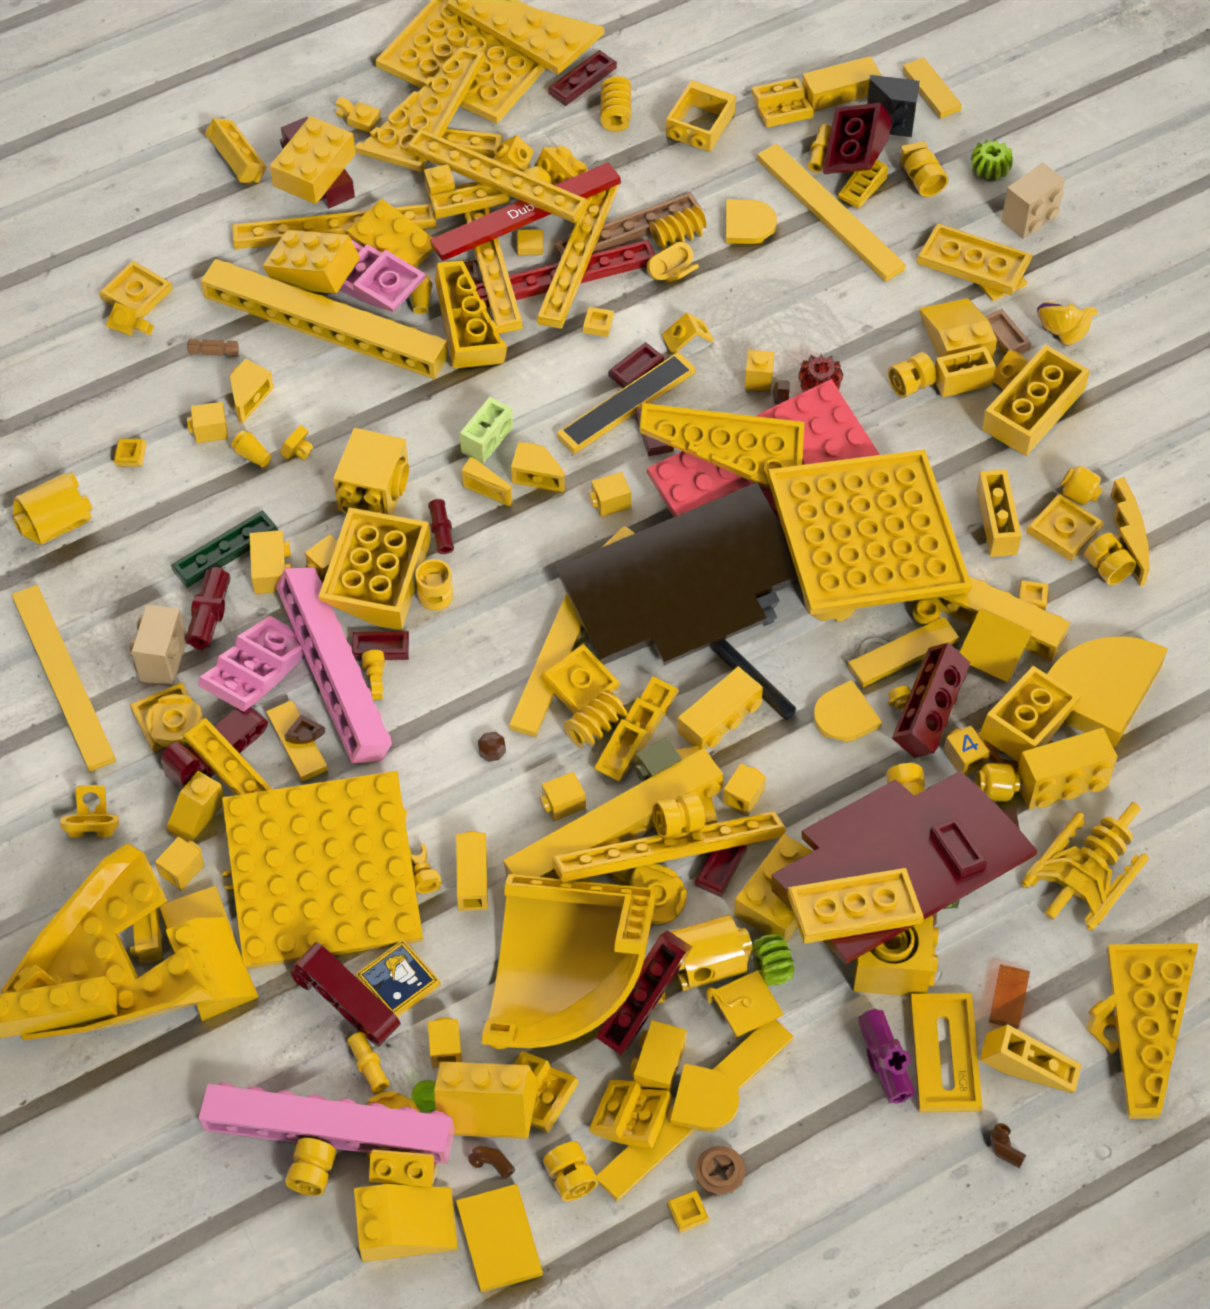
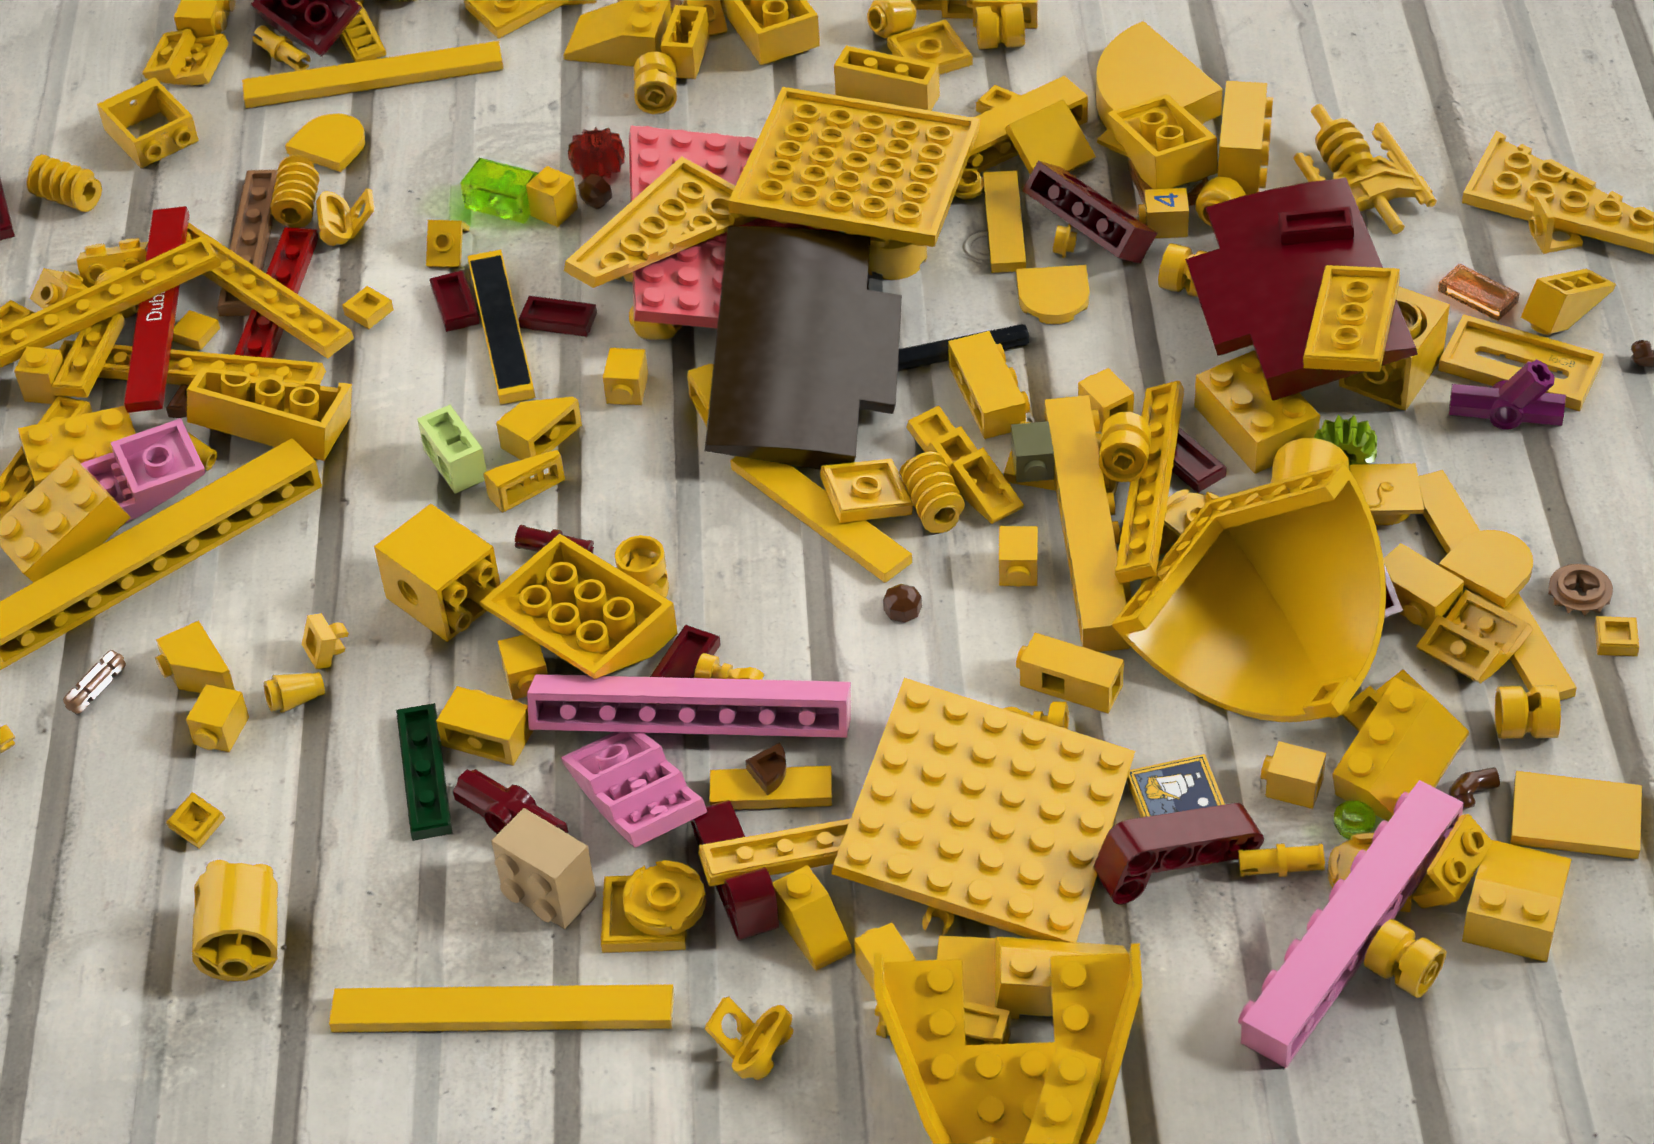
camera: 60 degrees left, 10 degrees down
(750, 333) = (497, 190): none -> clear neon green brick

